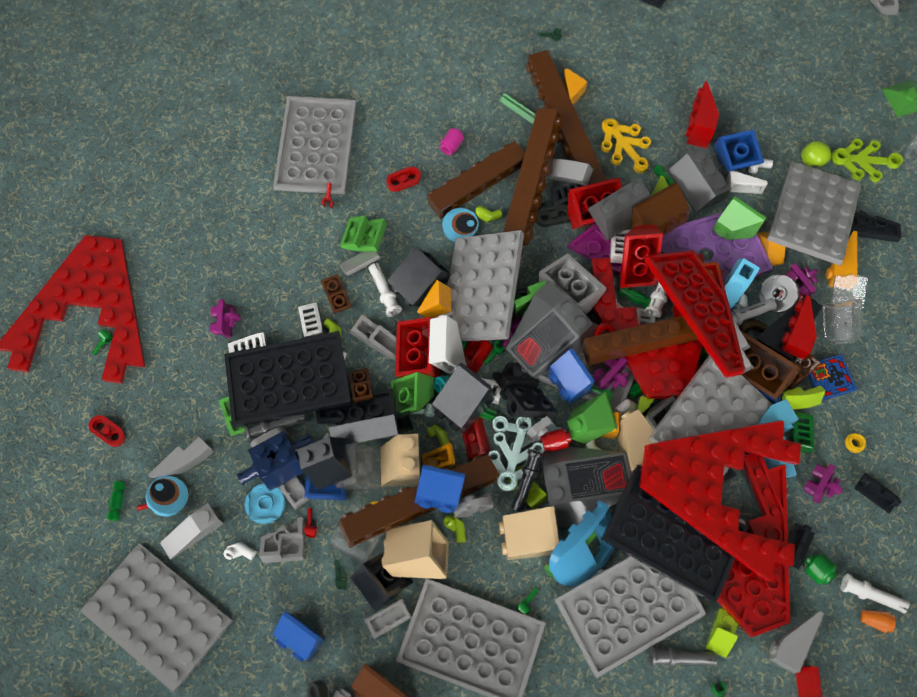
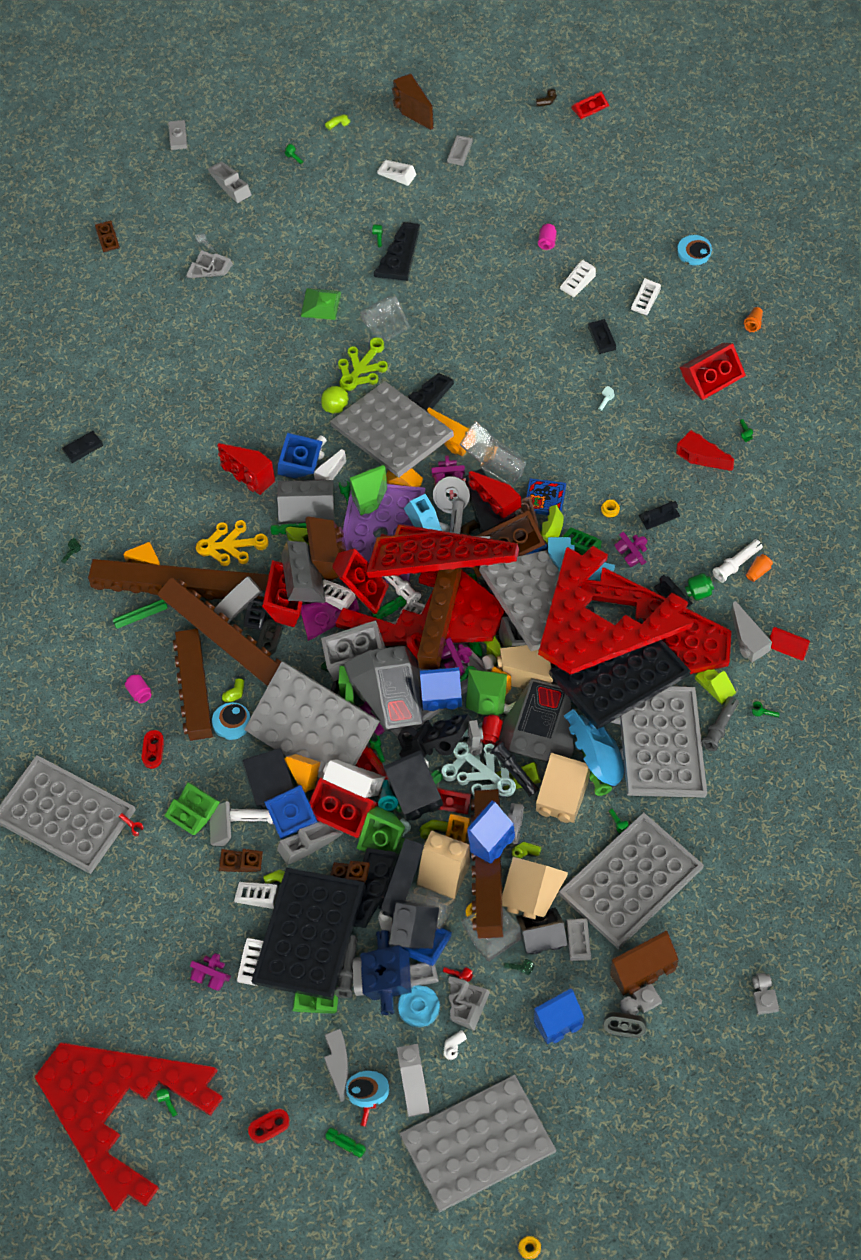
camera: 60 degrees left, 10 degrees down
(392, 310) = (290, 811): none -> blue tile

